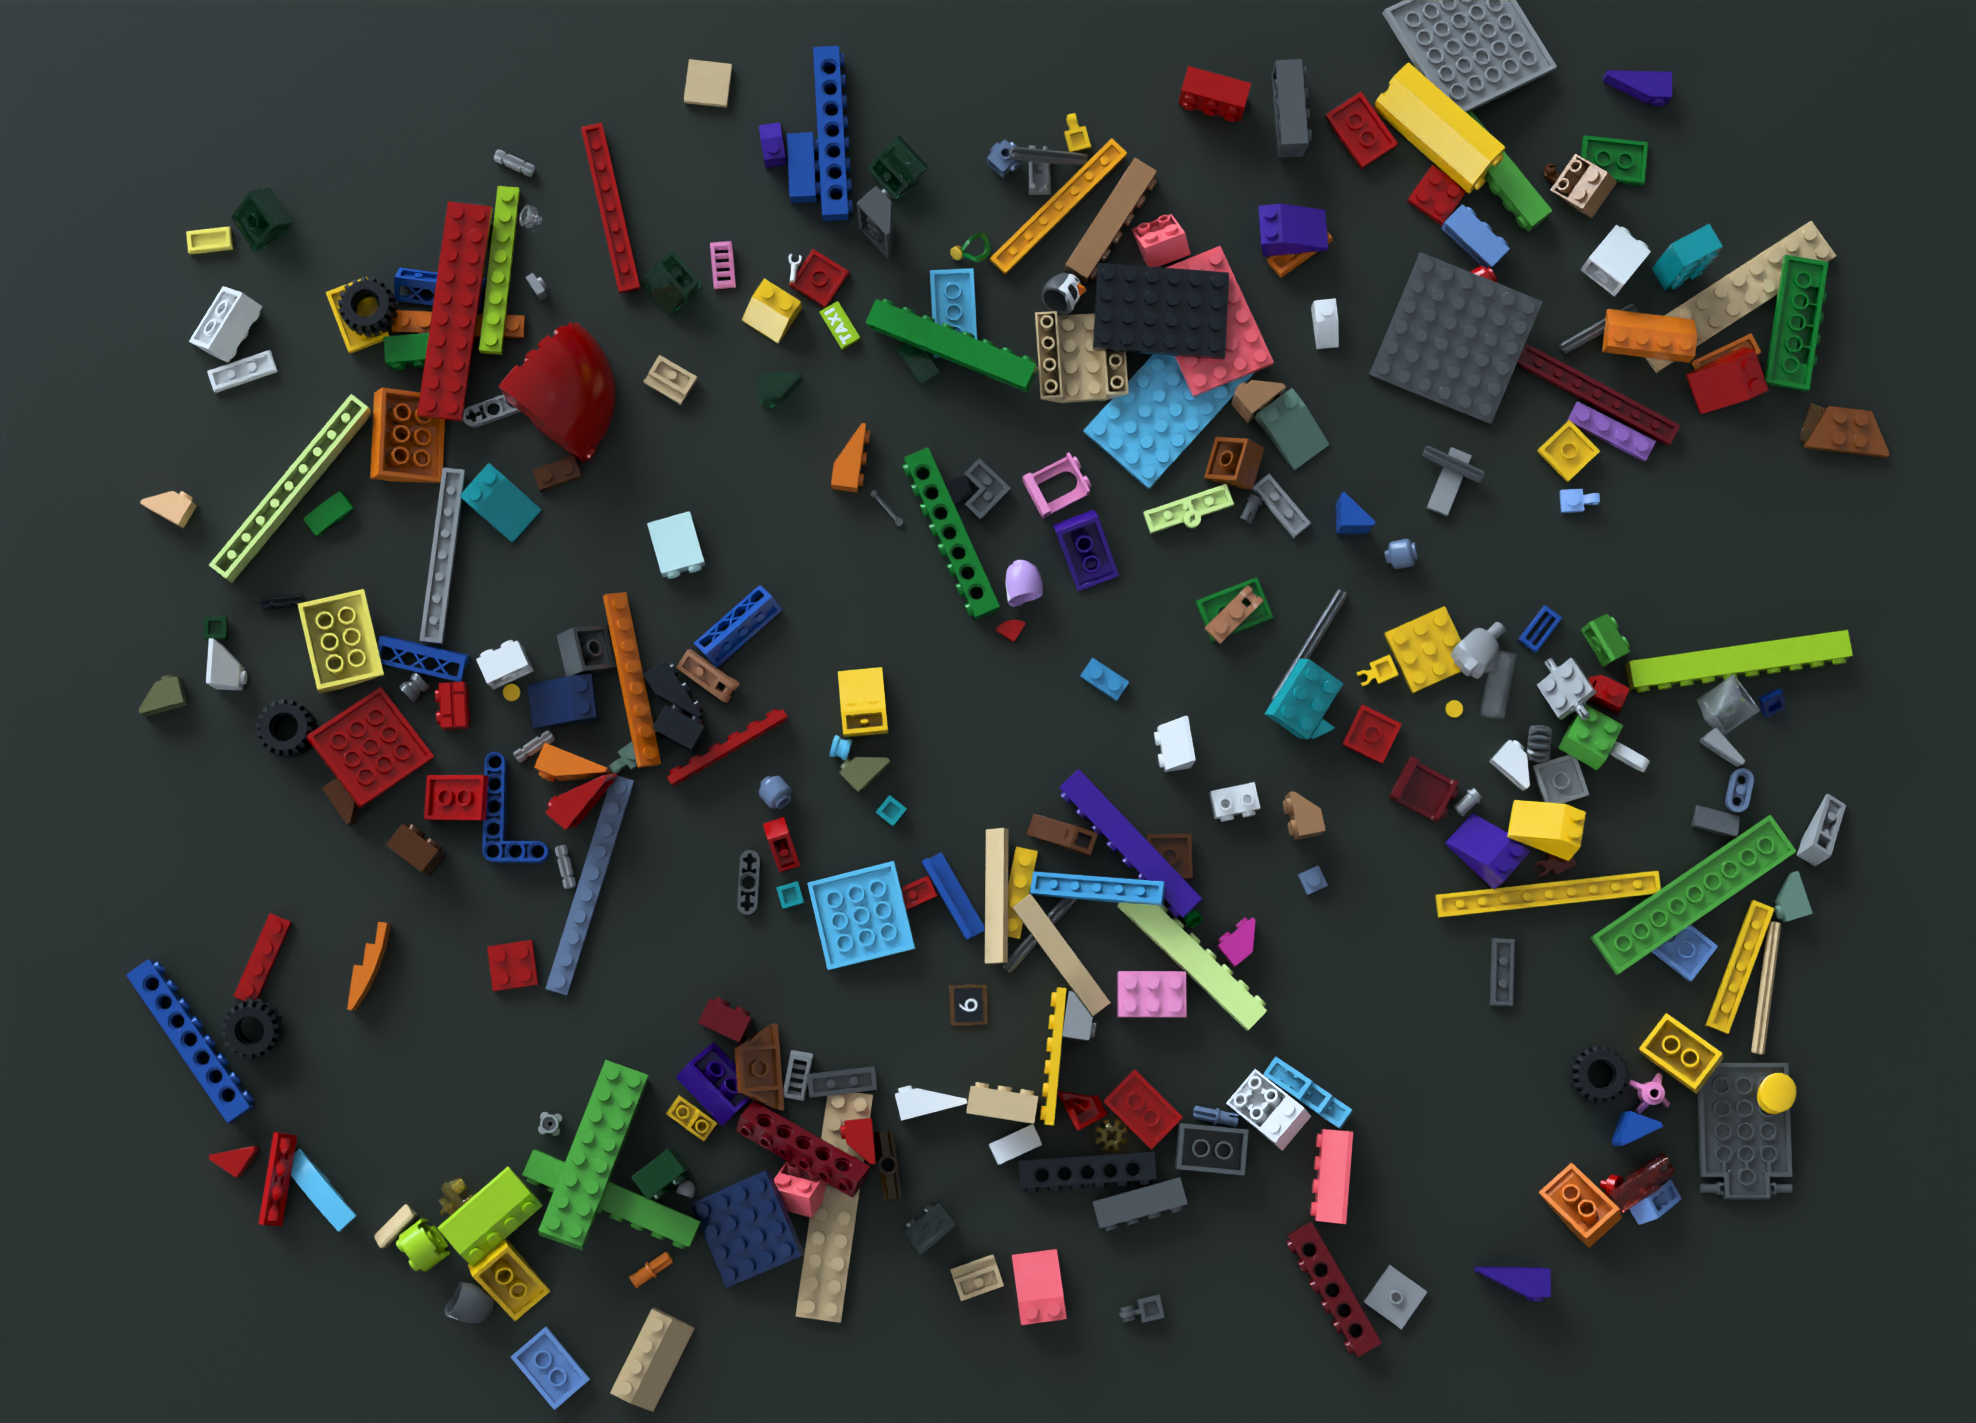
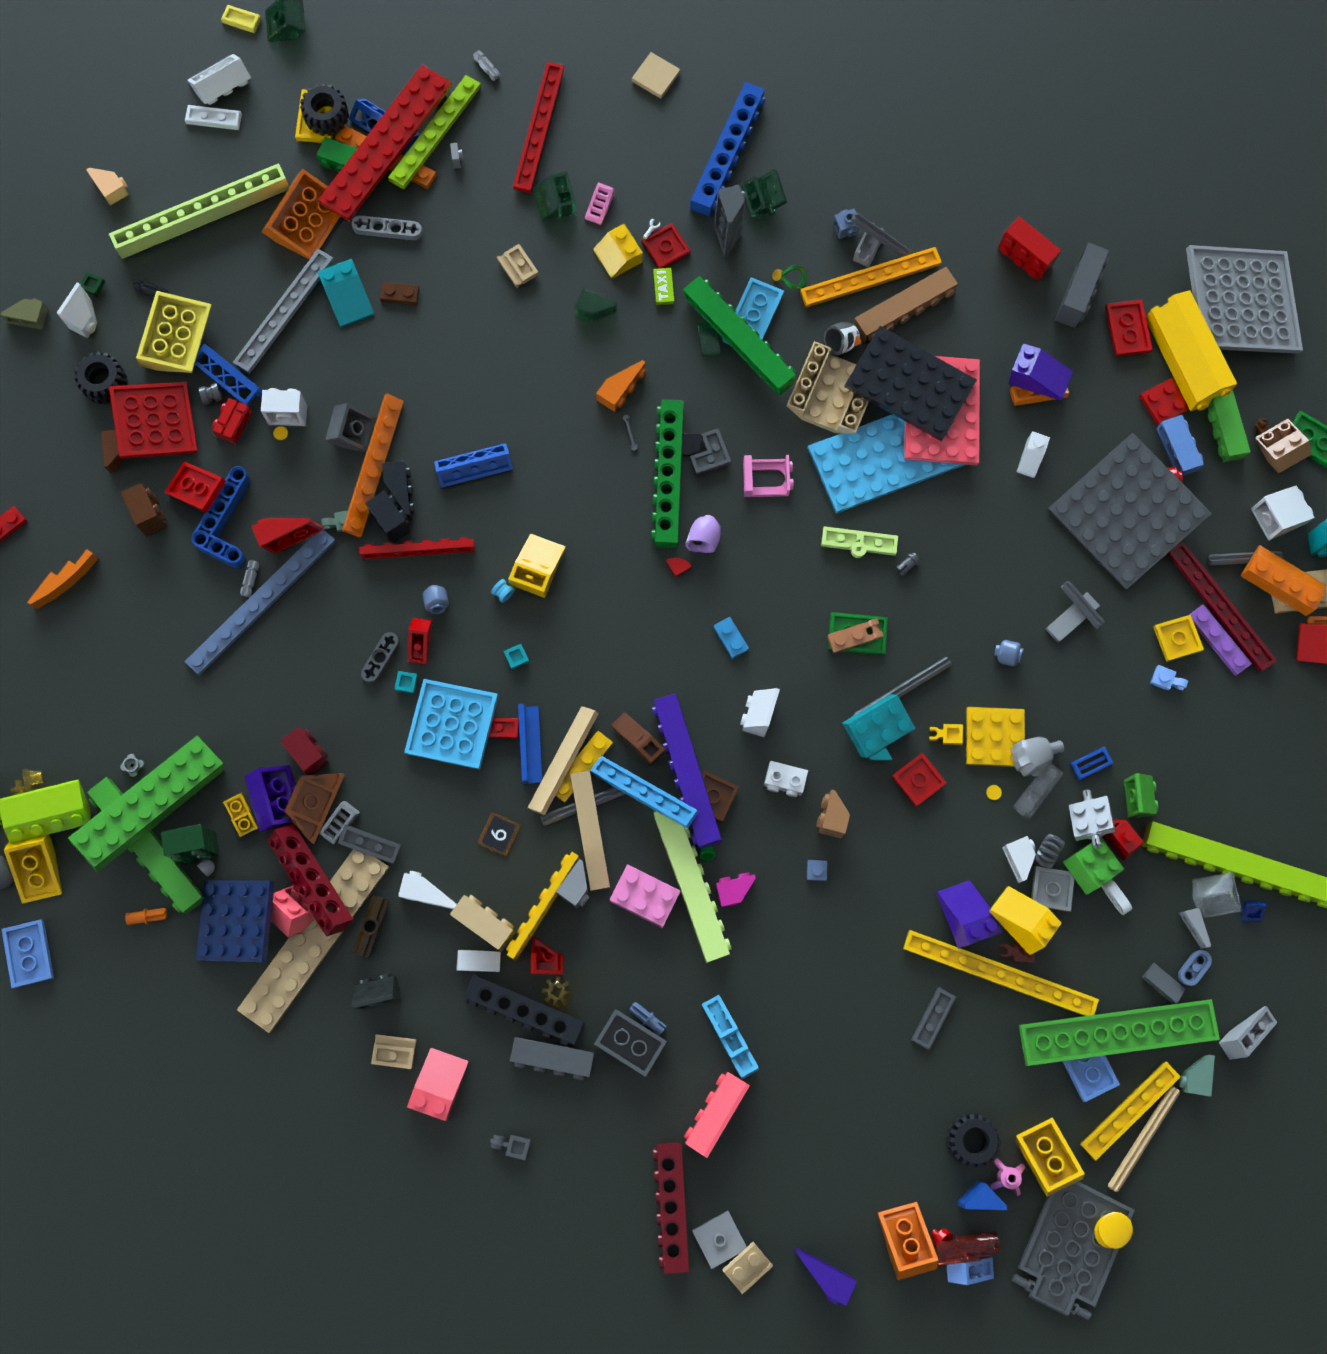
camera: 25 degrees right, 5 degrees down
(328, 513) = (220, 241): green slope -> none
(512, 965) = (170, 632): red plate -> none
(529, 216) = (476, 106): clear tile -> none
(533, 746) = (274, 479): light grey axle -> none
(563, 701) = (315, 457): dark blue slope -> none
(565, 390) = (434, 229): red brick -> none
(565, 766) = (283, 498): orange slope -> none
(652, 1360) = (107, 987): tan slope -> none
(676, 545) = (458, 383): light aqua panel -> none
(707, 675) = (430, 489): nougat plate -> none
(772, 145) = (679, 138): dark purple slope -> none
(802, 167) = (693, 162): blue brick -> none
(860, 1137) = (359, 894): red slope -> none
(862, 771) = (510, 616): olive slope -> none
(1076, 136) = (909, 233): yellow plate -> none
(1086, 550) = (765, 534): dark purple slope -> none
(1142, 1109) = (592, 983): red plate -> none
(1161, 241) = (936, 336): coral slope -> none
(1234, 462) = (912, 523): dark orange slope -> none
(1255, 396) = (953, 482): medium nougat slope -> none
(1269, 1109) = (692, 1034): white slope -> none
(1281, 505) = (932, 573): light grey tile -> none
(1292, 429) = (969, 519): sand green slope -> none
(1351, 517) = (983, 606): blue slope -> none
(1424, 790) = (939, 843): dark red panel -> none
(1436, 1310) = (747, 1267): none -> tan plate
(1467, 802) = (970, 869): light grey pin -> none

